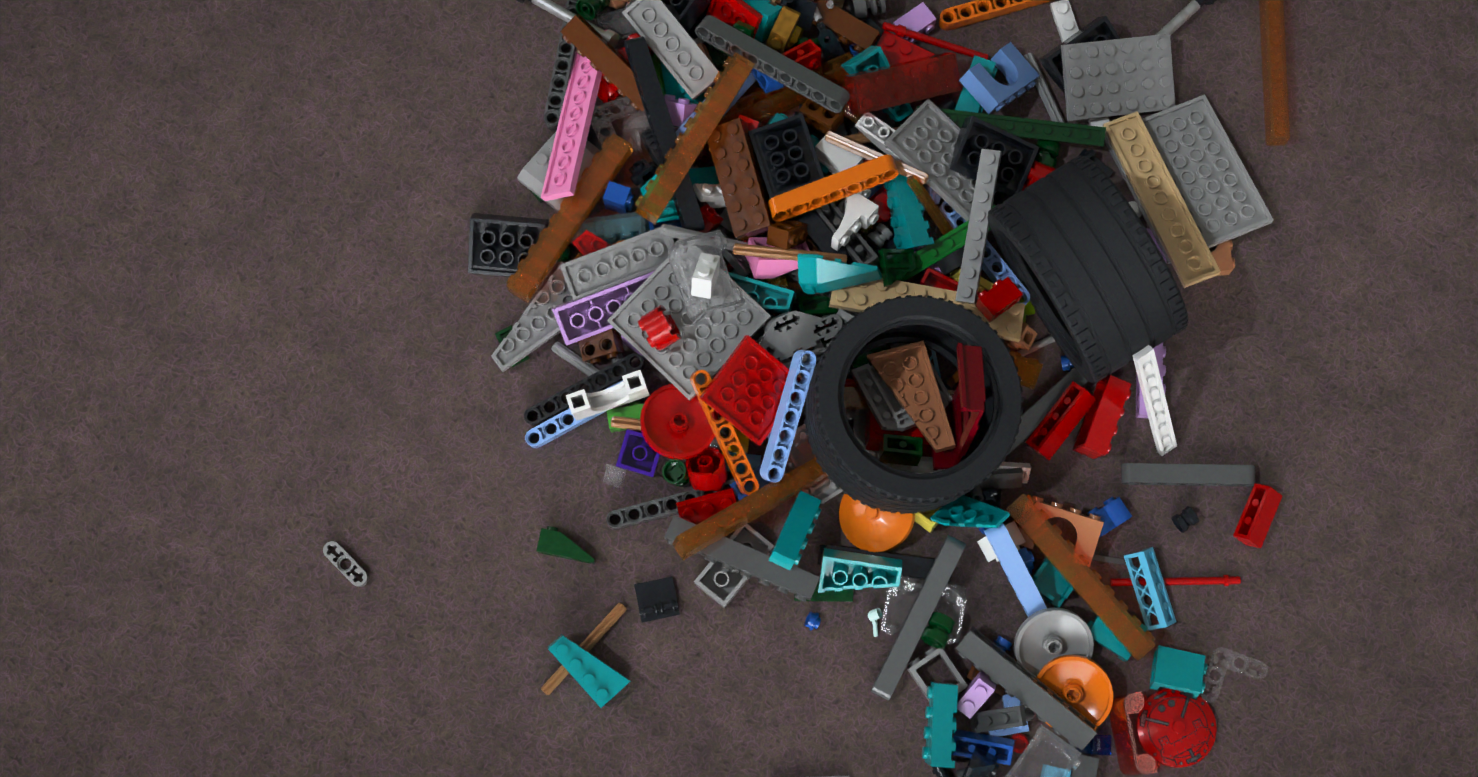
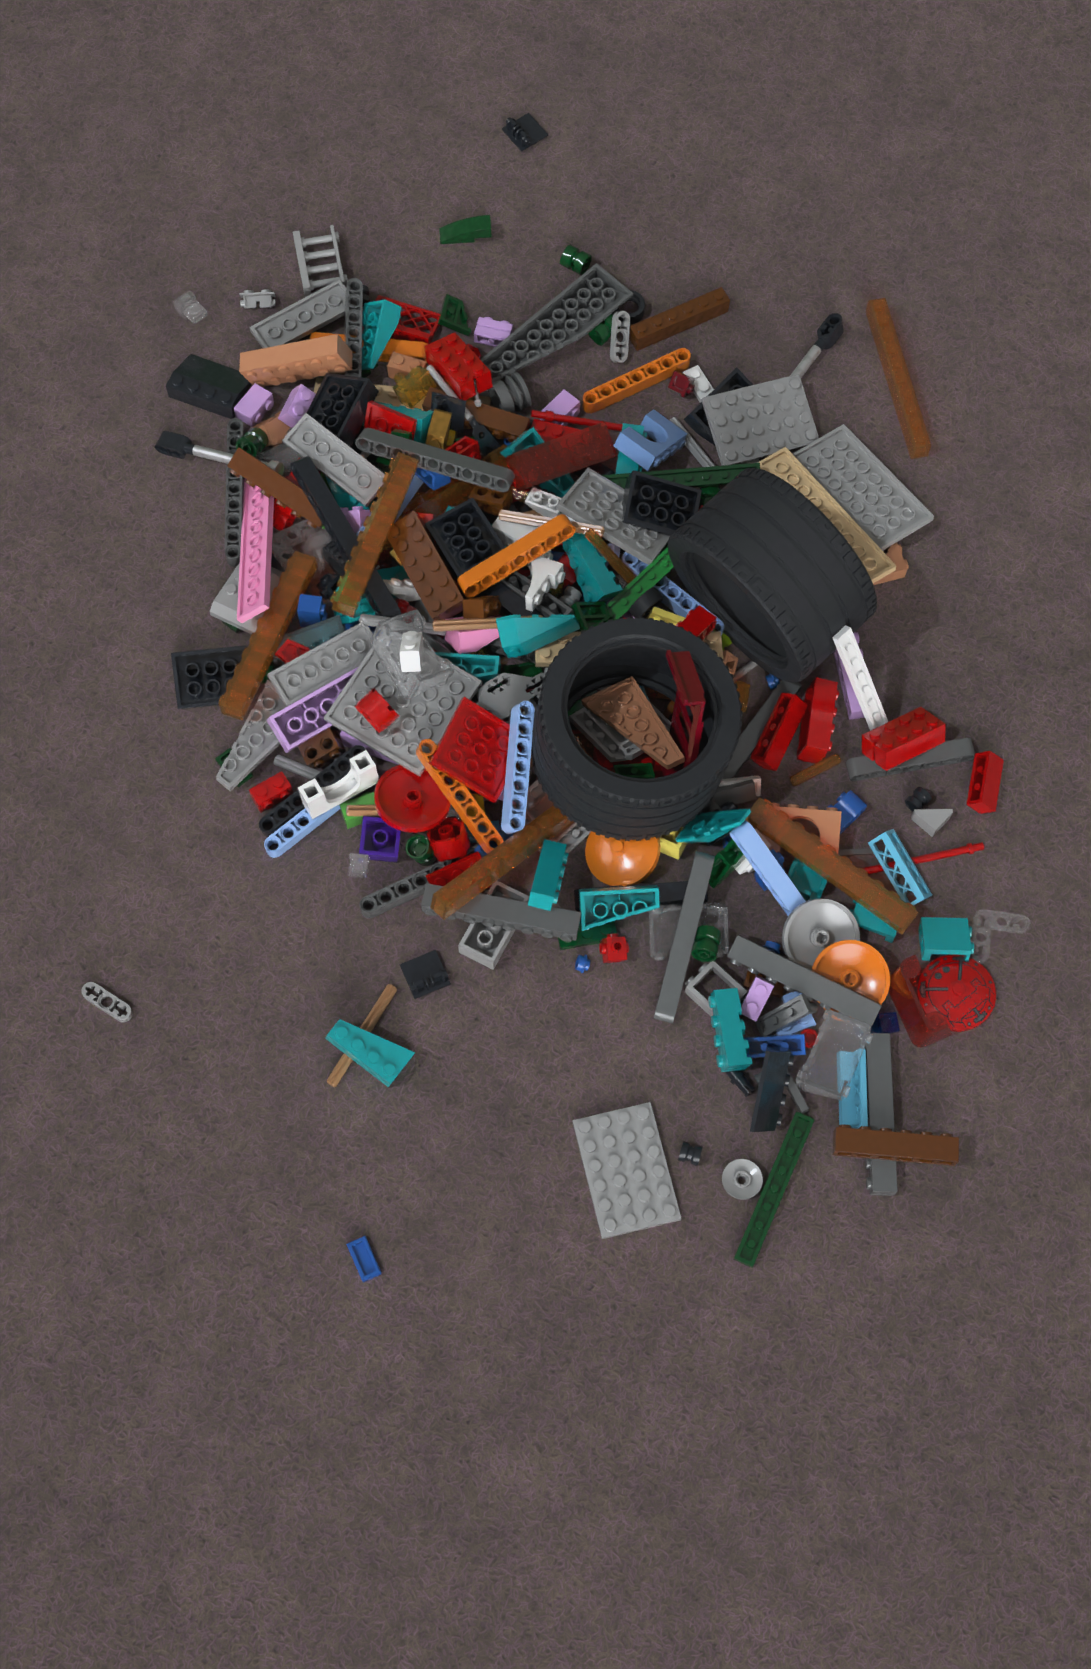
camera: 15 degrees left, 10 degrees down
(543, 381) = (271, 792): none -> red brick
(558, 545) = (317, 941): dark green slope -> none
(846, 613) = (614, 948): none -> red brick
(873, 615) = (640, 946): light aqua hand -> none
(975, 549) = (725, 863): none -> dark green slope
(978, 226) = (660, 558): light grey plate -> none
(1046, 17) = (682, 384): none -> dark red bracket
(1088, 465) = (815, 769): none -> clear orange axle
(1185, 454) = (903, 738): none -> red piece
(1193, 543) = (931, 819): none -> light grey slope

